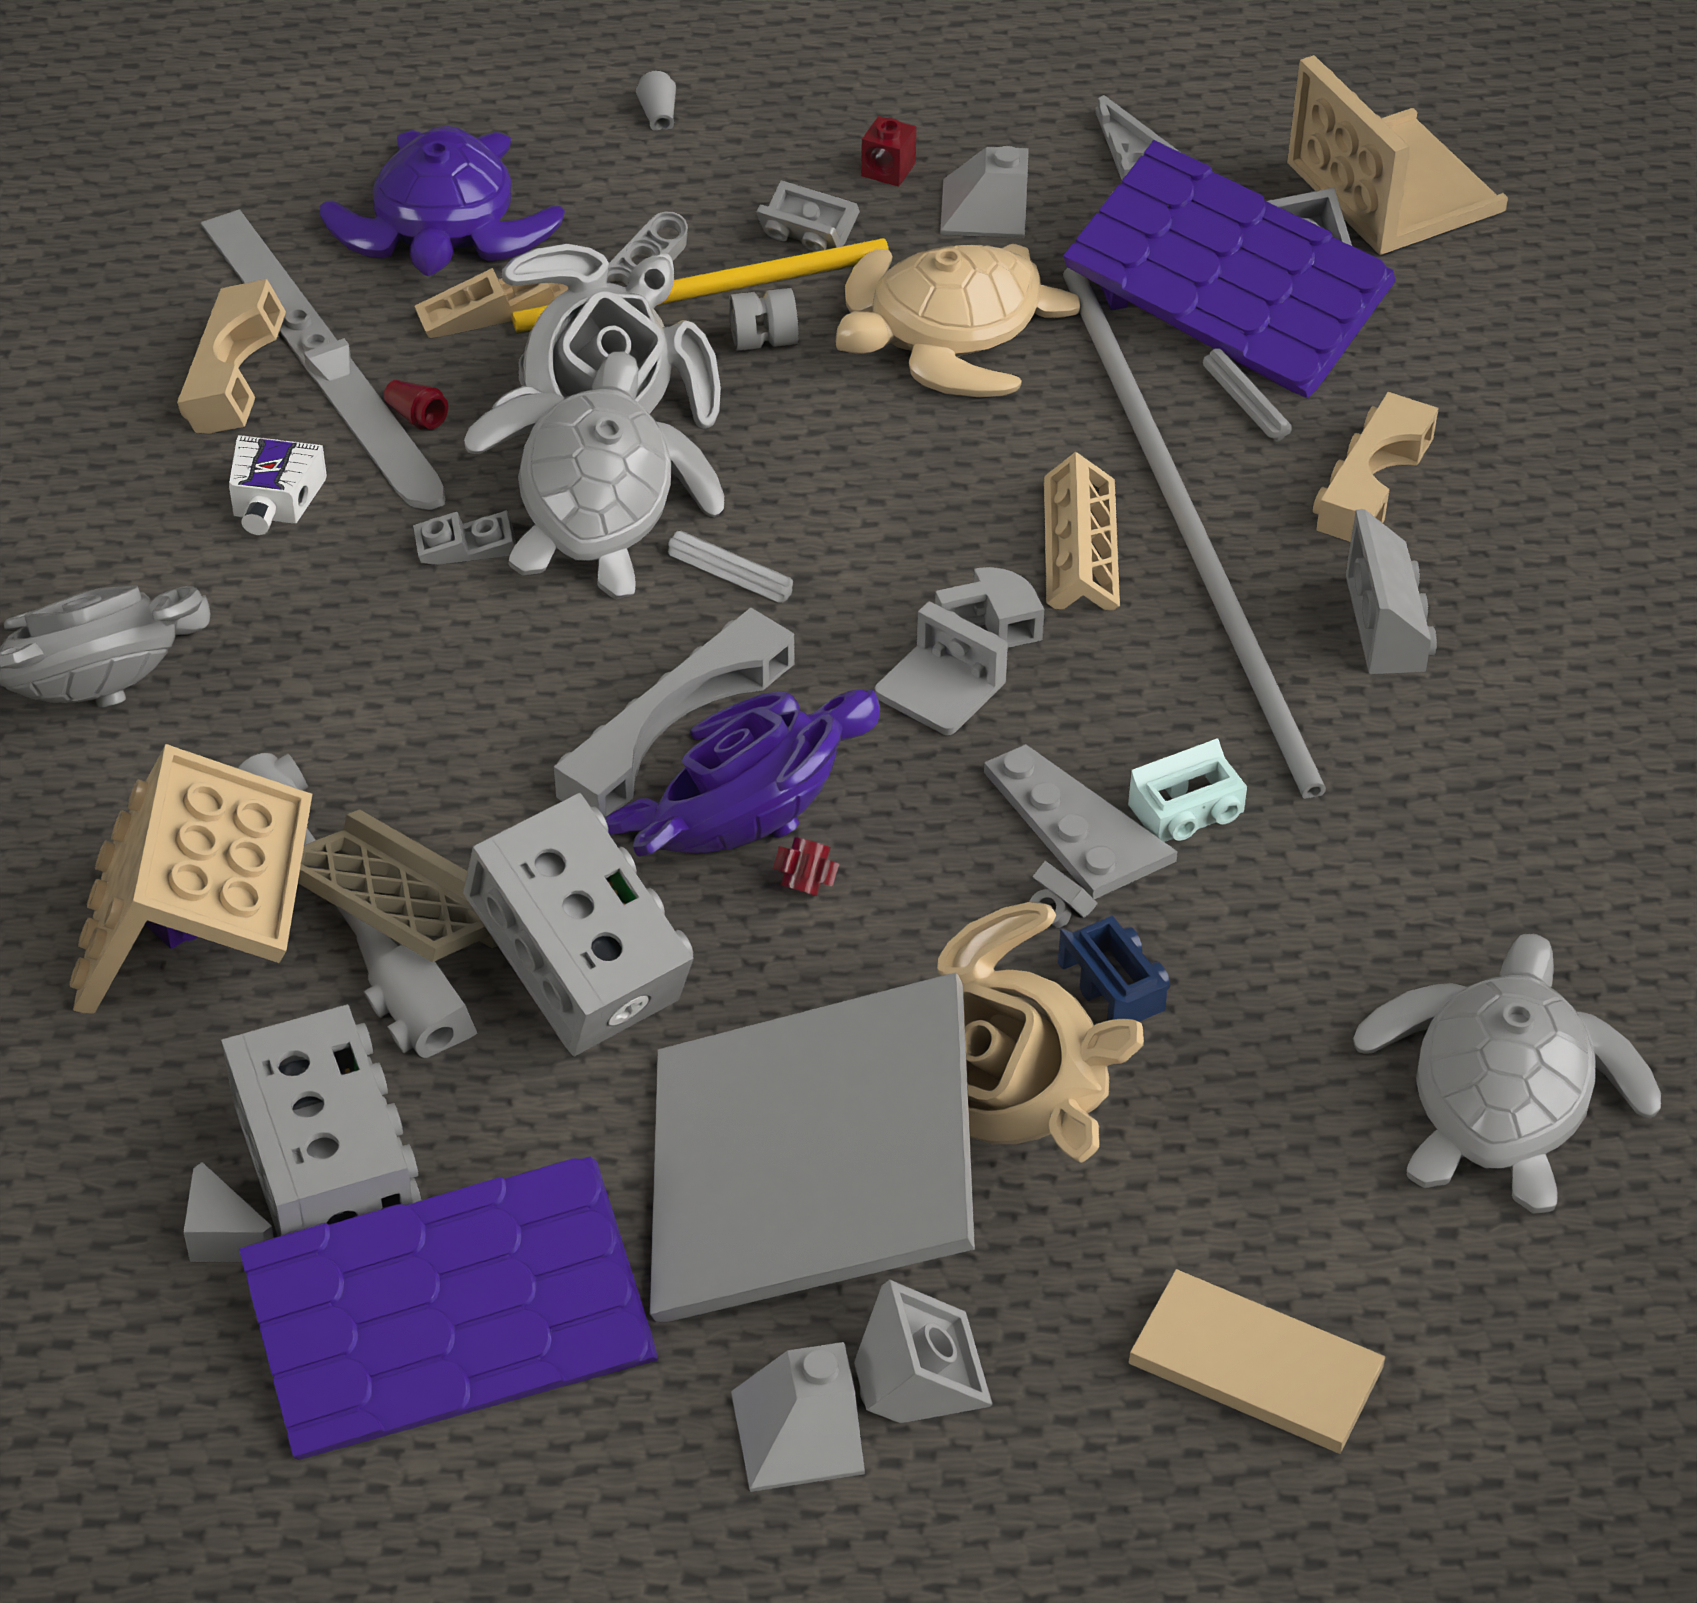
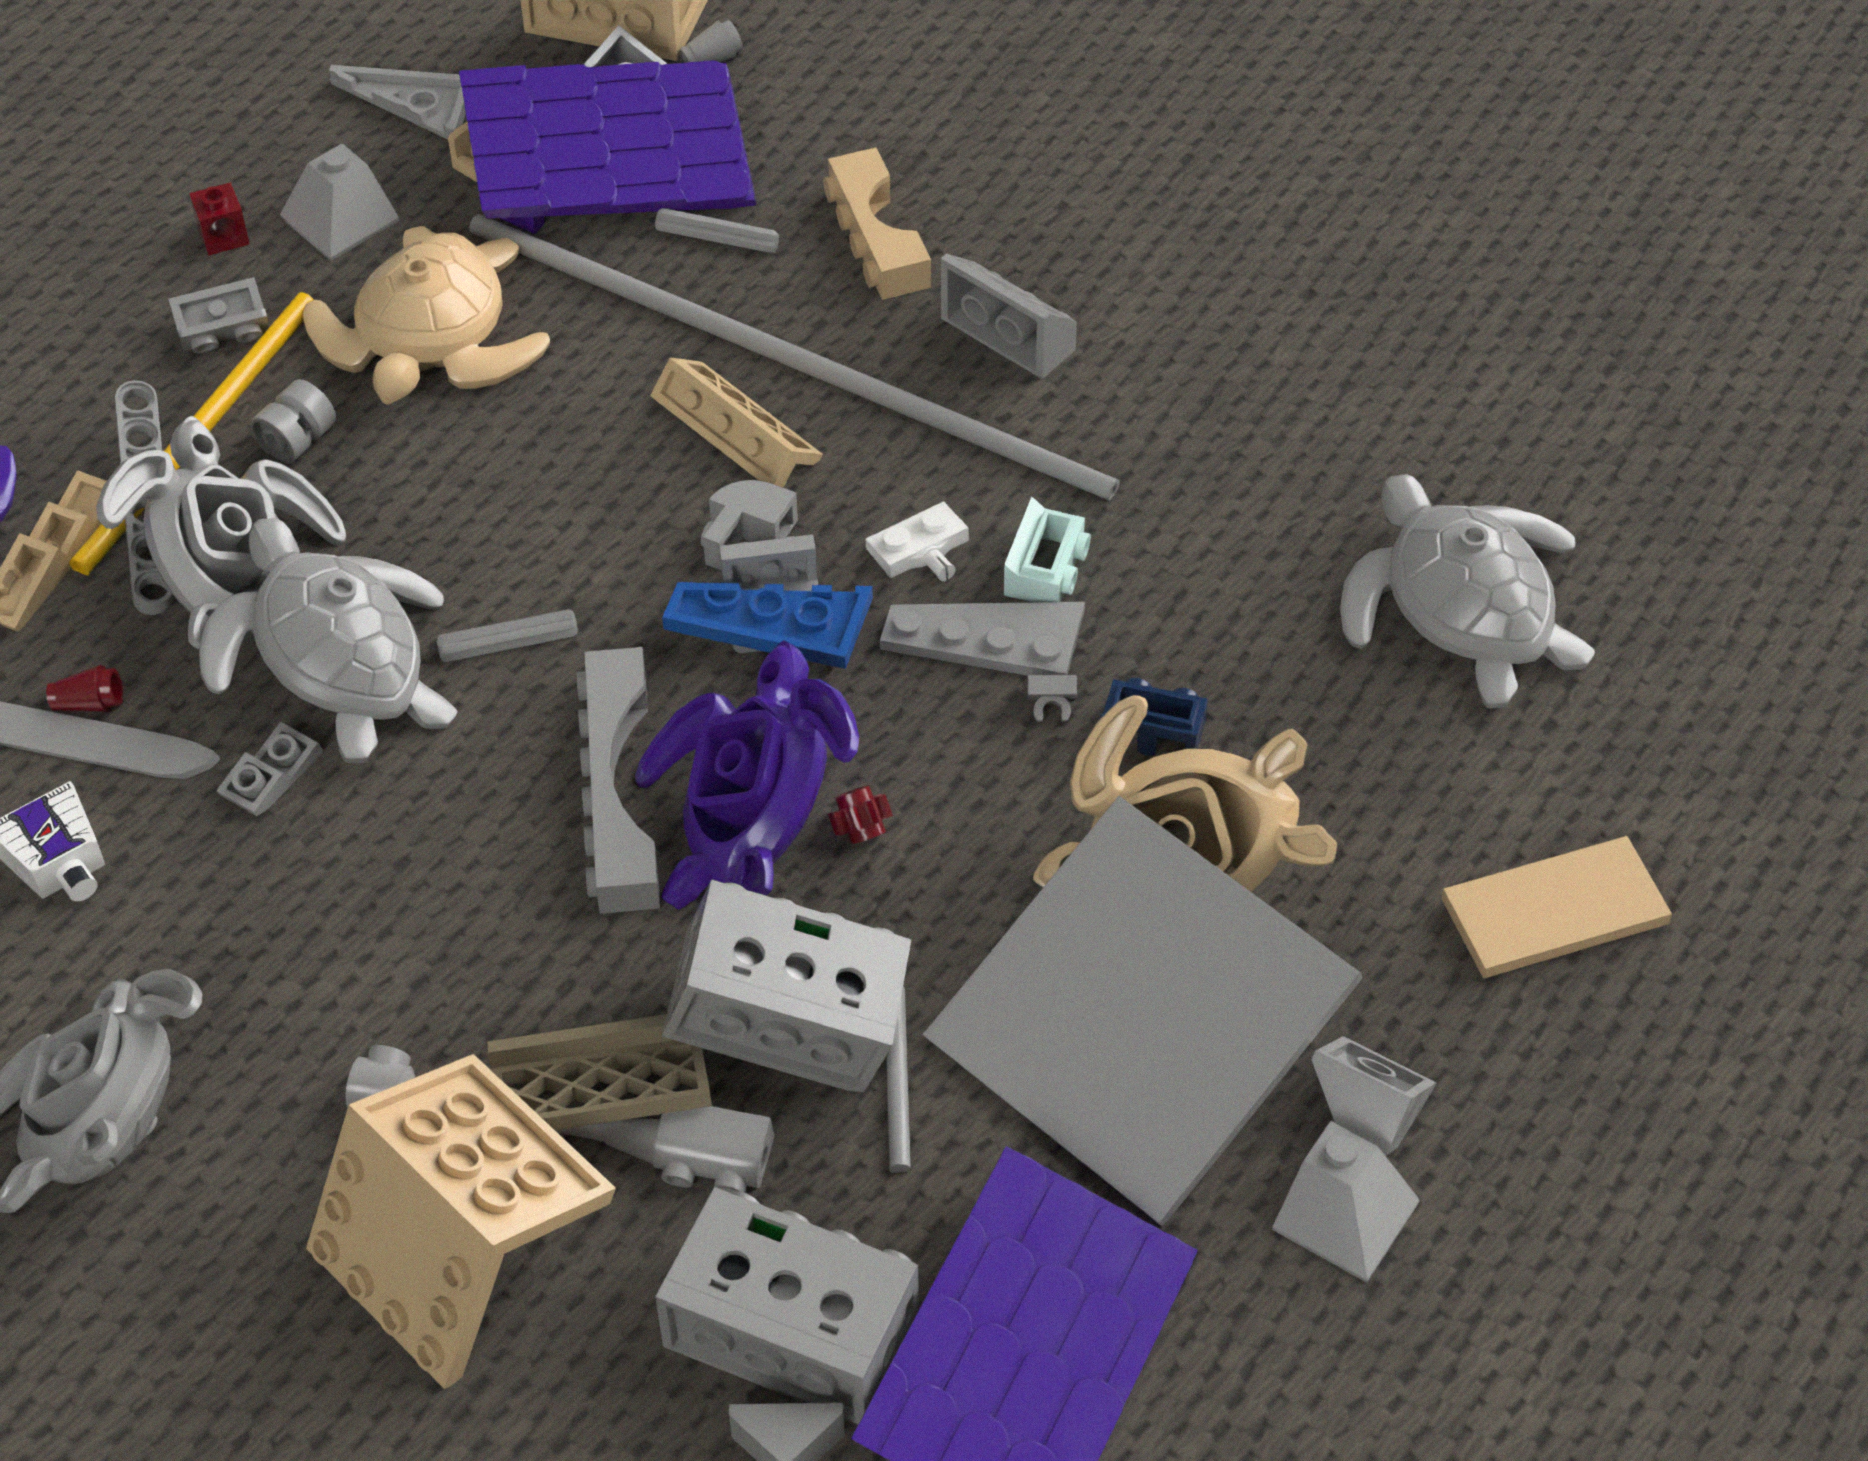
camera: 45 degrees left, 5 degrees up
(605, 1066) = (898, 1096): none -> light grey bar
(918, 688) = (816, 622): none -> blue wing
(1109, 719) = (919, 542): none -> white plate
(1418, 259) = (715, 43): none -> light grey cone

